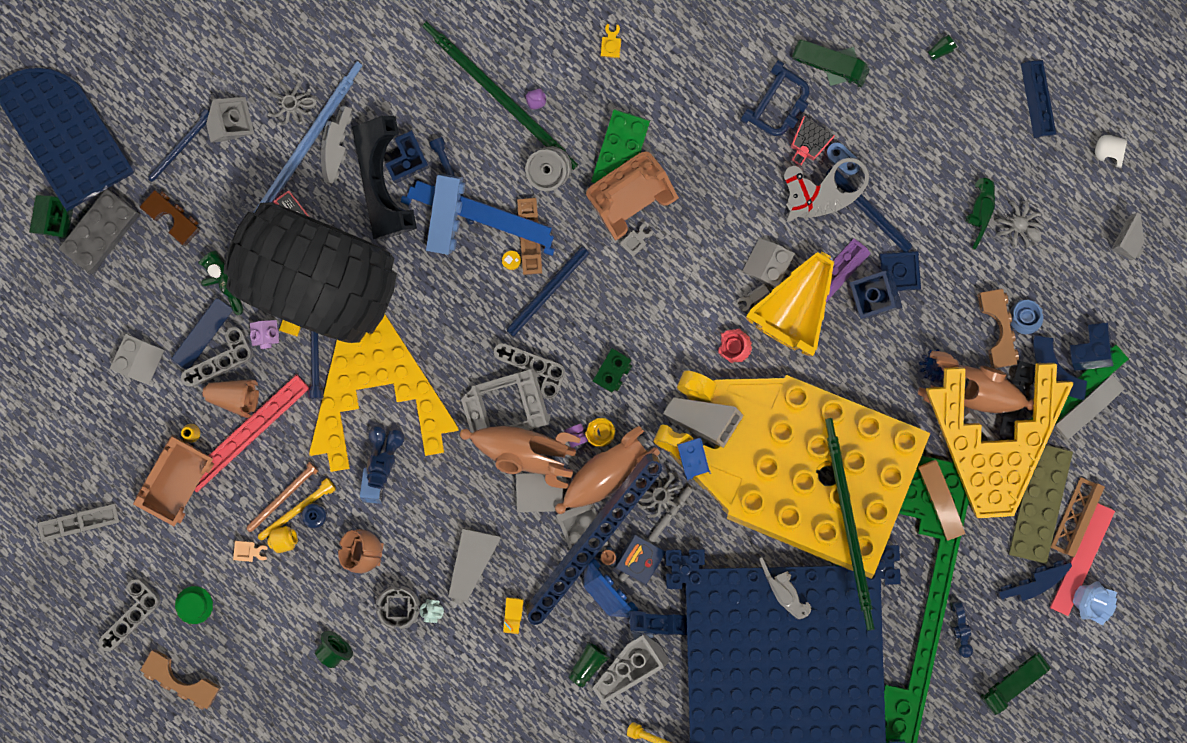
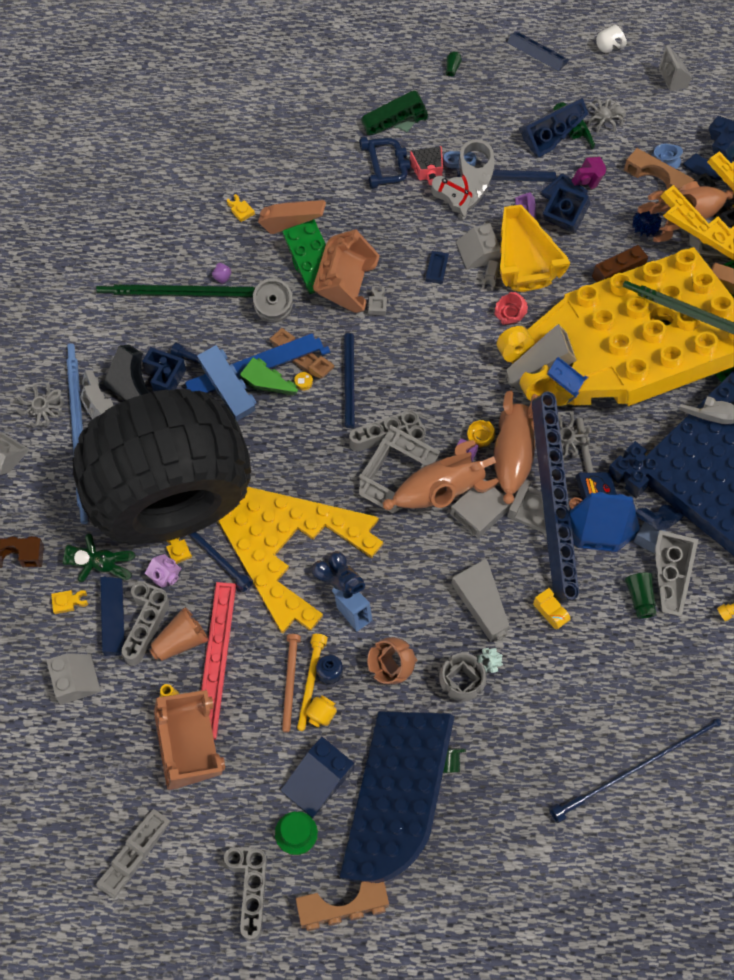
camera: 45 degrees left, 25 degrees down
(179, 291) = (65, 601): none -> yellow plate
(239, 583) = (318, 777): none -> dark blue slope
(245, 551) = (299, 746): light nougat plate -> none
(277, 644) = (397, 795): none -> dark blue plate
(477, 235) = (262, 378): none -> bright green slope
(612, 370) = (447, 389): dark green brick -> none
(640, 94) = (289, 214): none -> nougat wedge
(718, 249) = (437, 267): none -> dark blue tile
(864, 387) = (620, 263): none -> reddish brown arch
(941, 278) = (590, 172): none -> magenta brick
(950, 199) = (547, 131): none -> dark blue wedge

